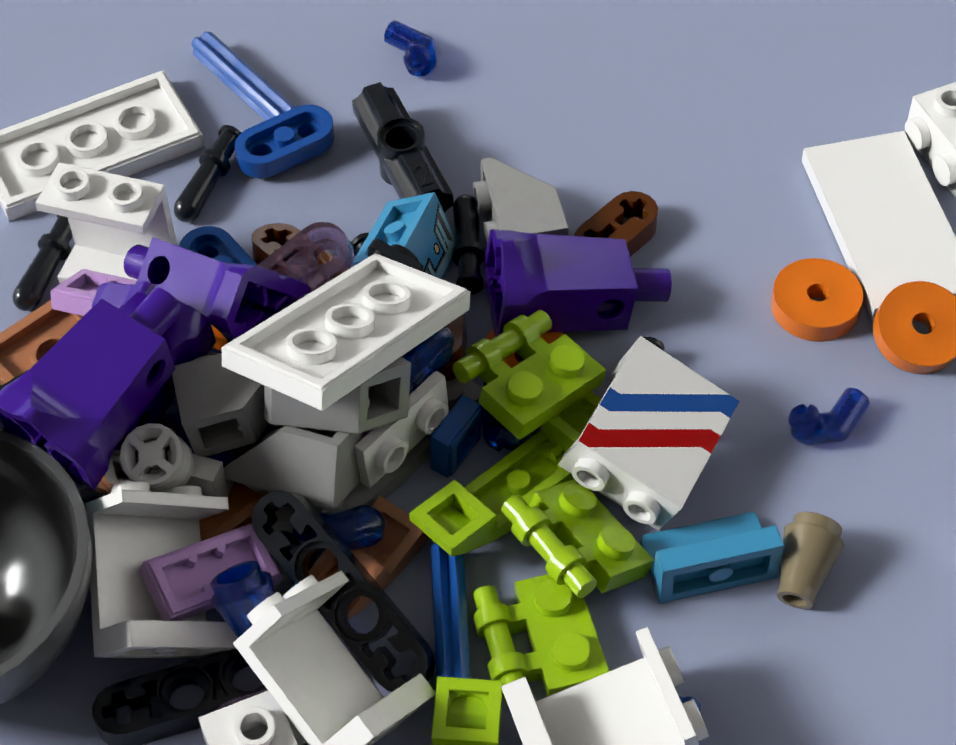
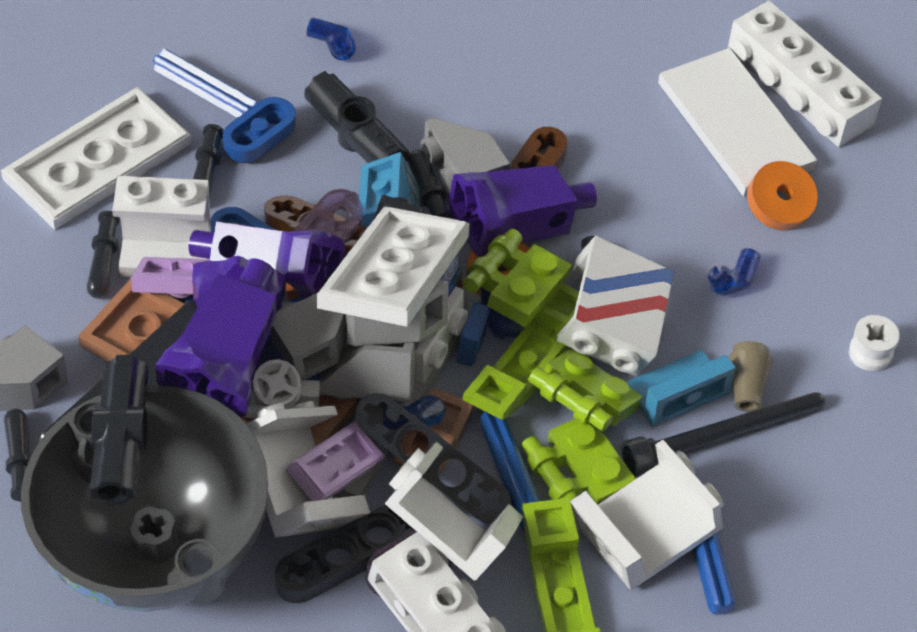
camera: 20 degrees left, 0 degrees up
(239, 592) = (371, 474): clear blue cone -> none
(624, 646) = (641, 453): none -> black piece
(816, 319) = (700, 202): orange piece -> none

